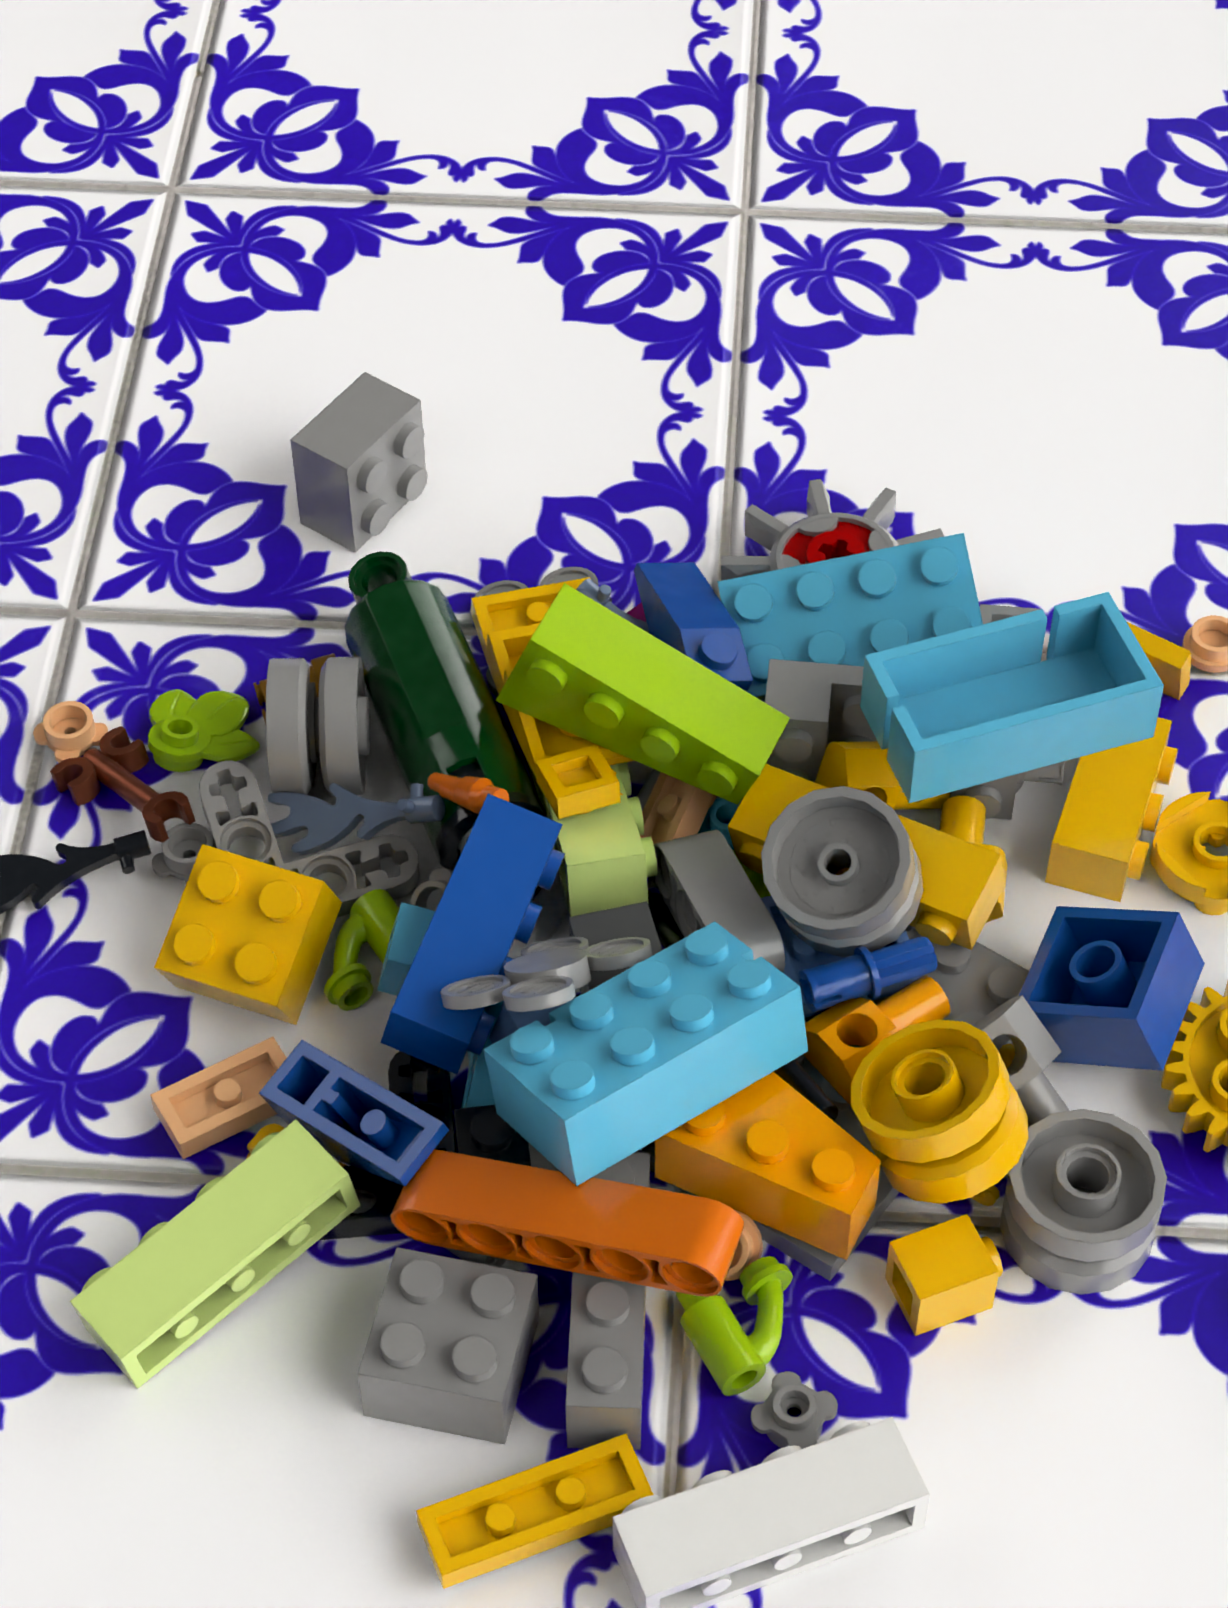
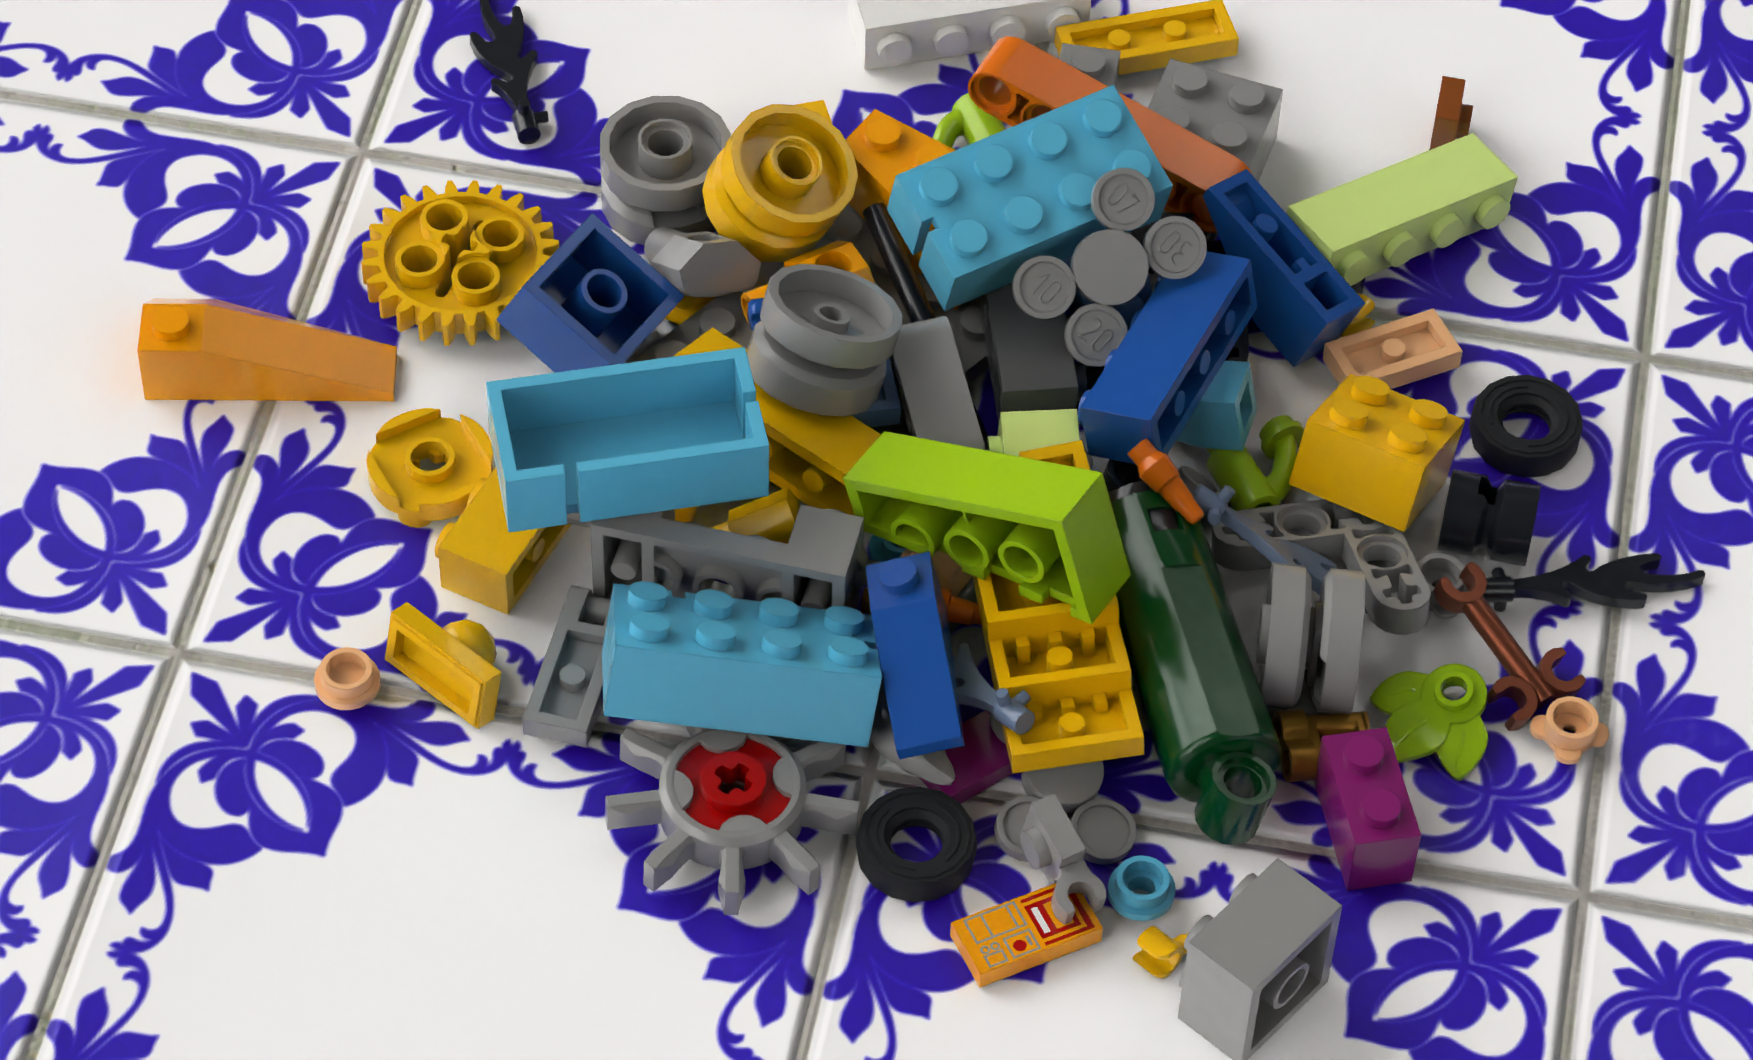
camera: 175 degrees left, 0 degrees up
(92, 1075) = (1520, 455): none -> black tyre
(128, 901) = (1489, 517): none -> black wheel
(147, 1426) = (1451, 116): none -> dark orange plate
(262, 610) = (1367, 808): none -> magenta brick
(440, 508) = (1159, 952): none -> yellow hand
(464, 553) = (1144, 874): none -> medium azure plate
(543, 541) = (1055, 847): none -> light grey plate
(560, 517) = (1022, 935): none -> light orange tile
(662, 542) = (911, 879): none -> black tyre
(780, 1427) = (934, 84): light grey plate -> none

